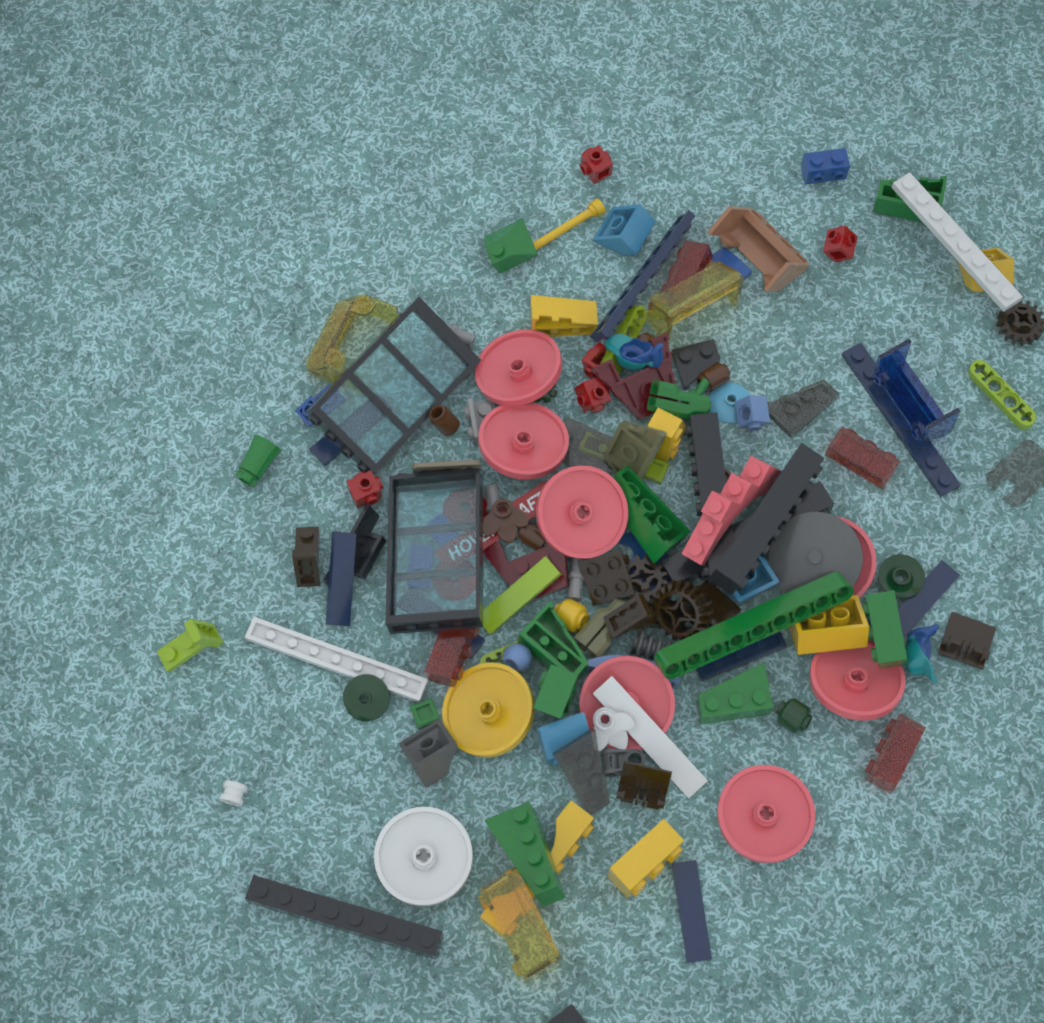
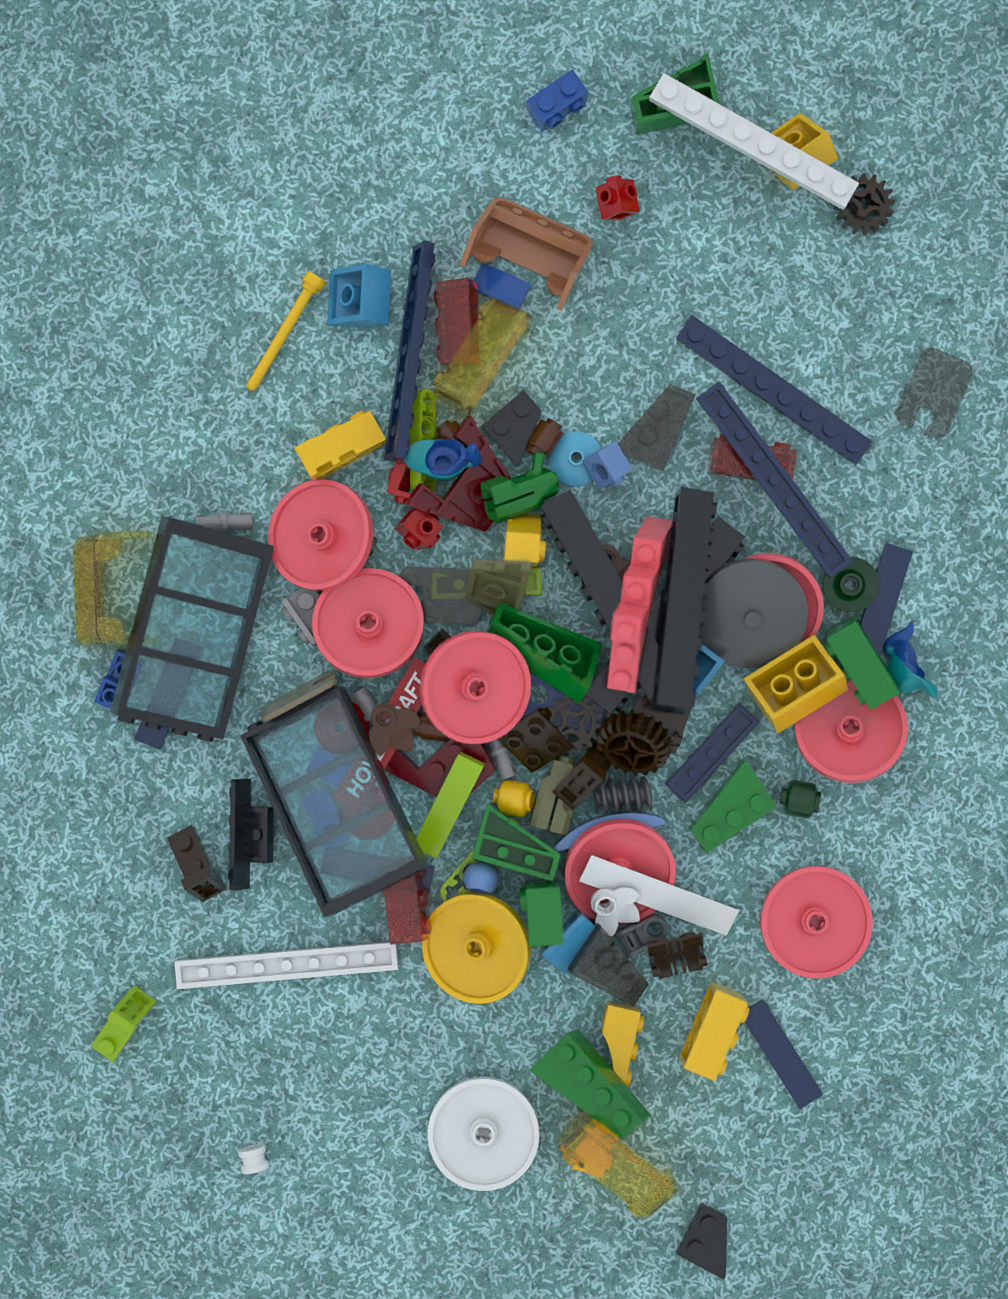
camera: 15 degrees left, 20 degrees up
(257, 460) = (83, 783): green plant -> none
(340, 579) = (247, 878): dark blue tile -> none
(344, 917) = (432, 1231): black brick -> none
(365, 489) = (211, 765): red brick -> none
(377, 694) = (343, 982): dark green dish -> none
(424, 713) = (409, 976): green tile -> none
(430, 752) = (435, 1020): dark grey slope -> none
(444, 420) = (268, 638): reddish brown brick -> none
(510, 246) = (235, 382): green slope -> none
(596, 164) = (290, 234): red brick -> none
(753, 625) = (720, 730): green beam -> none
(874, 472) = (774, 479): none -> dark blue plate
(894, 753) = (922, 789): clear red brick -> none
(911, 396) = (782, 368): clear blue windscreen -> none
(967, 640) = (949, 623): dark brown hinge -> none
(1004, 392) = (878, 300): lime beam -> none

